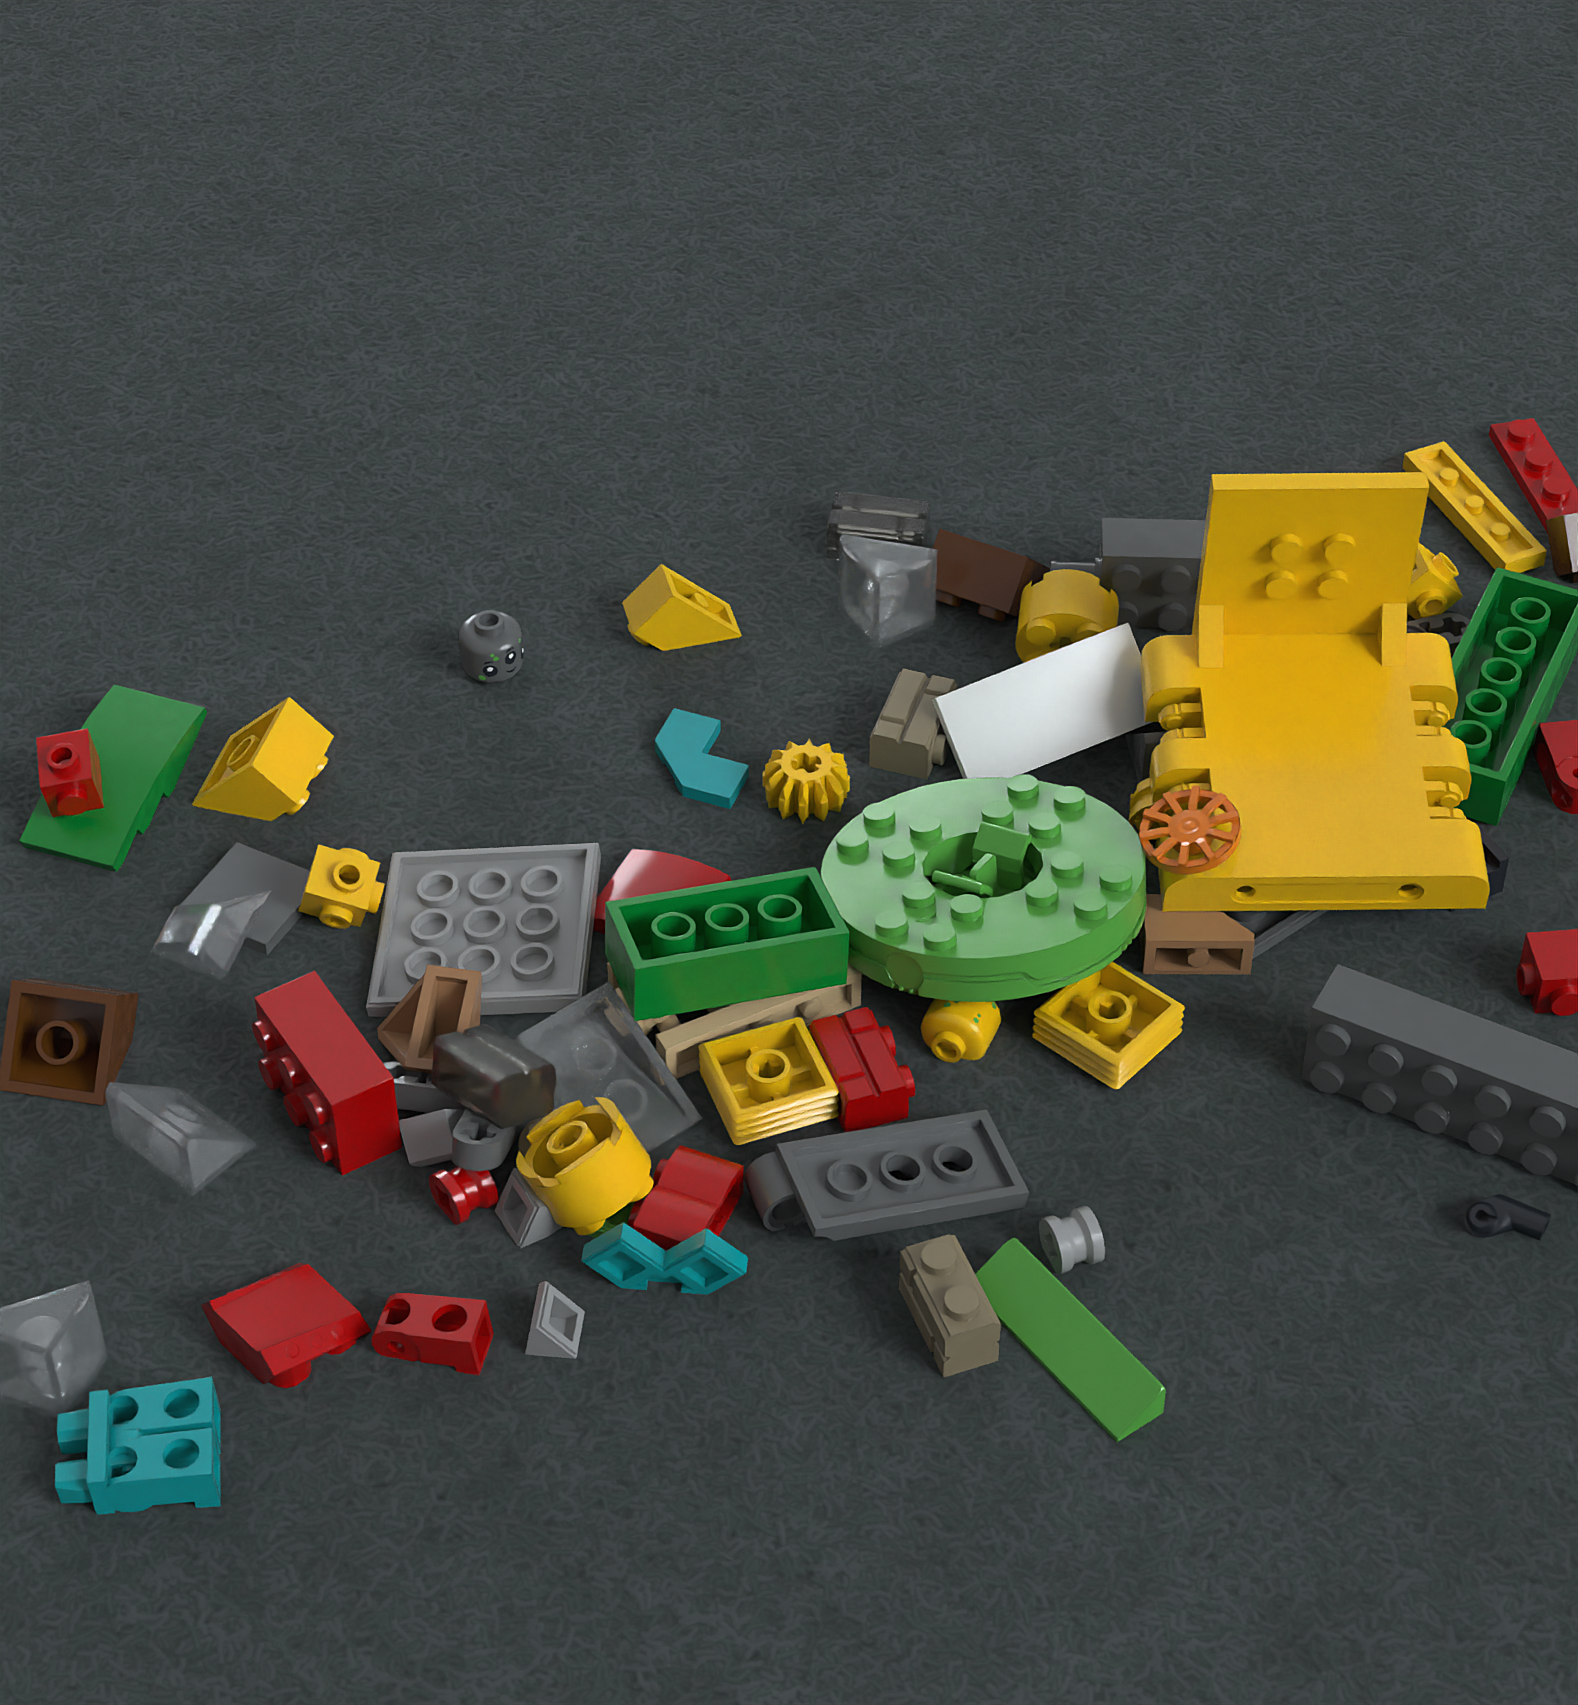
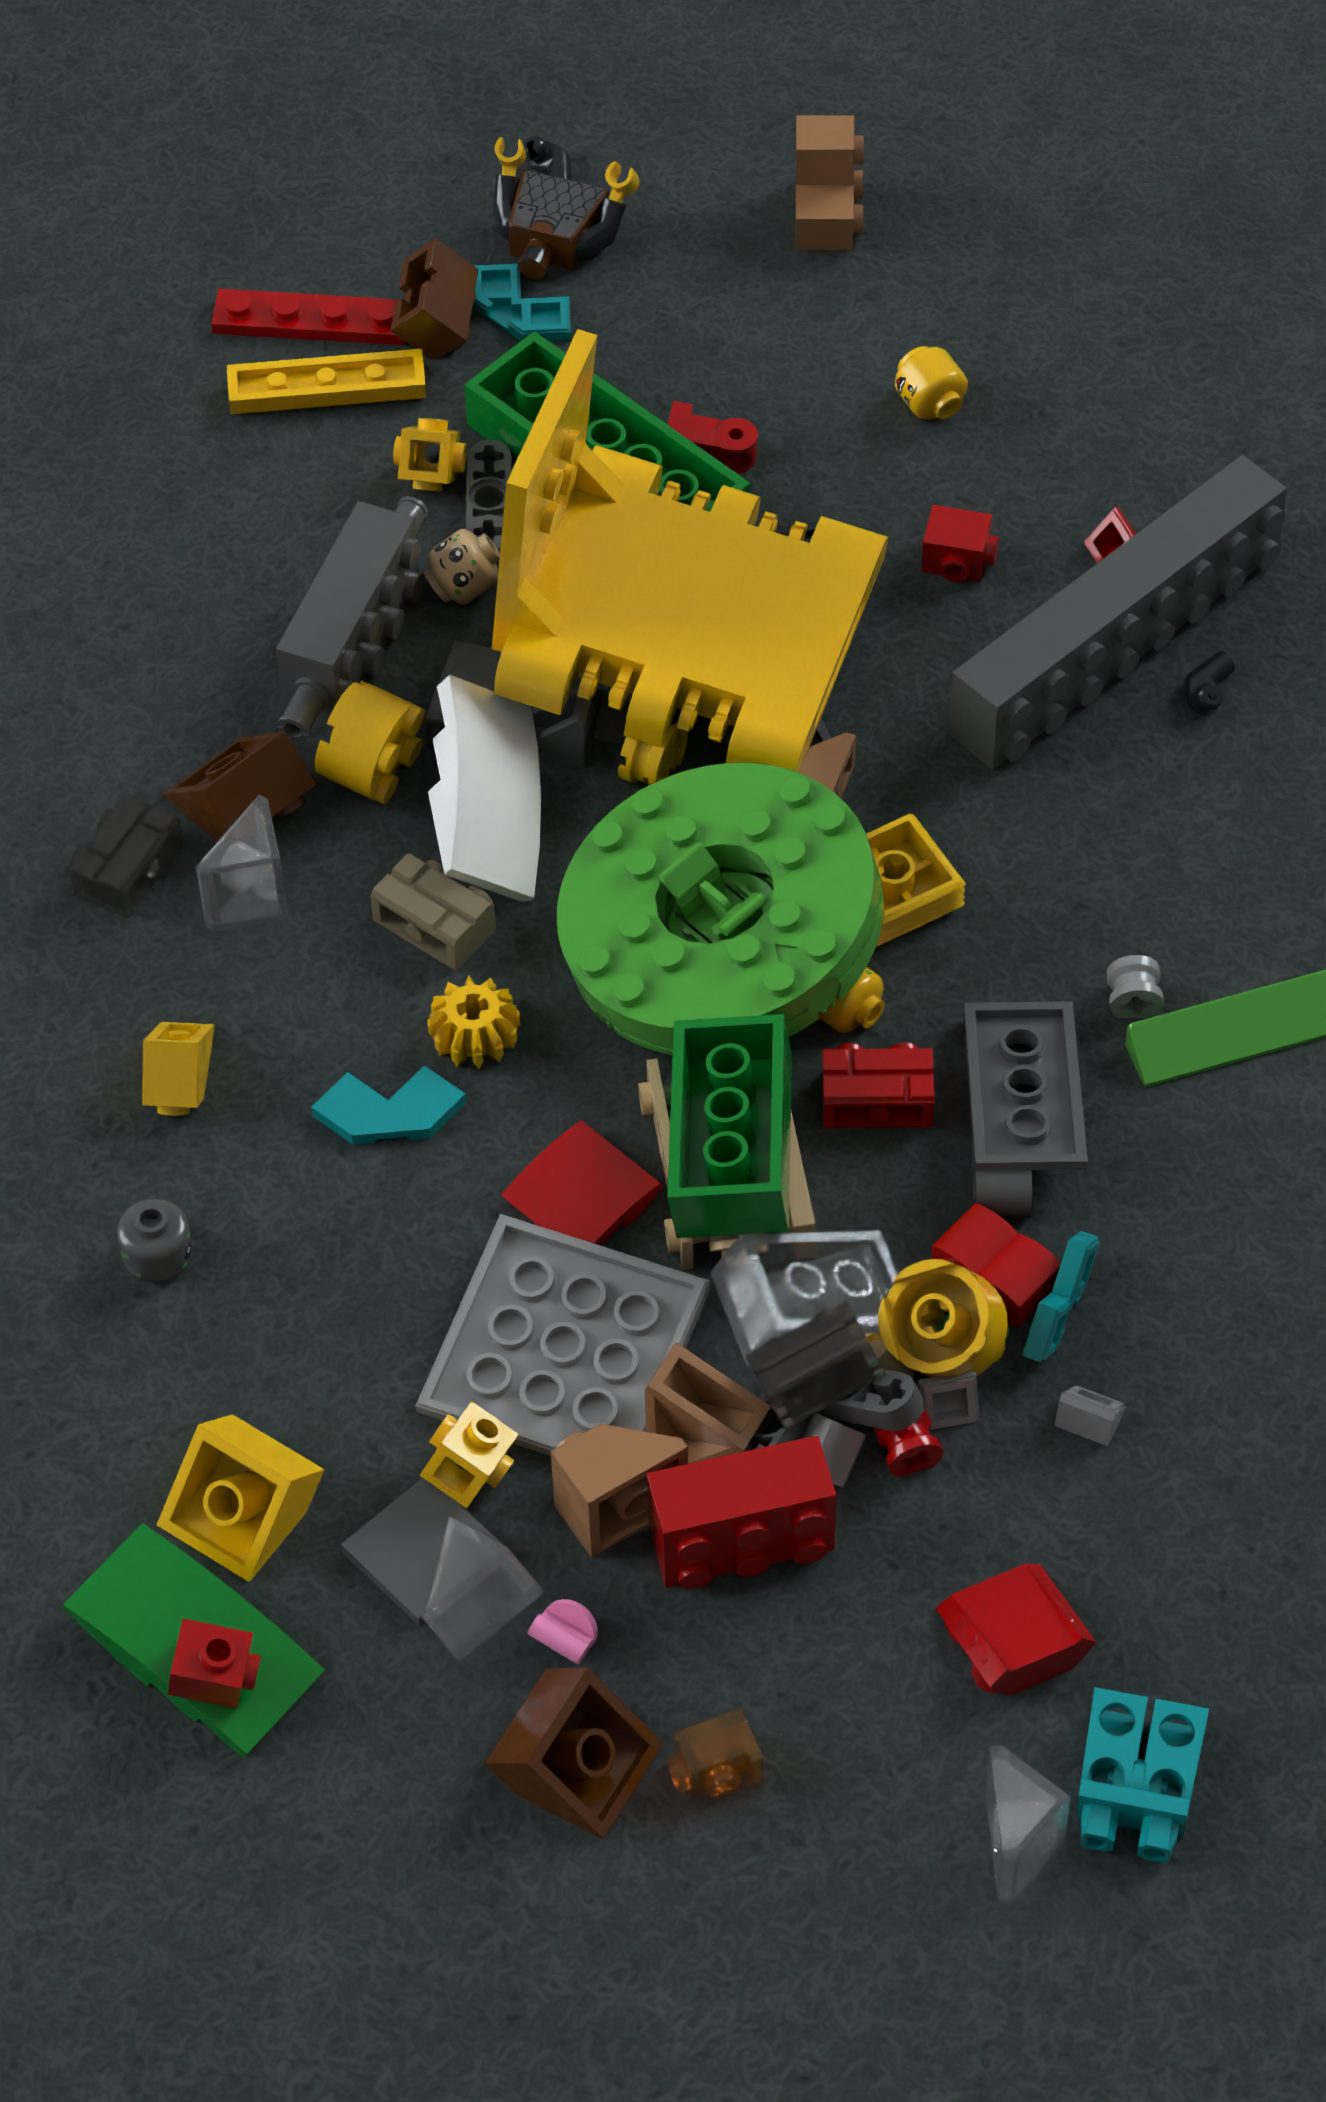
camera: 70 degrees left, 10 degrees up
(85, 1134) = (716, 1756): none -> clear orange brick
(174, 1133) = (747, 1671): clear slope -> none
(186, 1001) = (566, 1629): none -> bright pink plate
(330, 948) = (604, 1481): none -> medium nougat slope
(435, 1330) = (1074, 1504): red leg -> none
(768, 1080) = (852, 1187): yellow brick -> none
(949, 1305) = (1184, 1097): dark tan brick -> none
(1190, 830) = (760, 716): orange wheel -> none

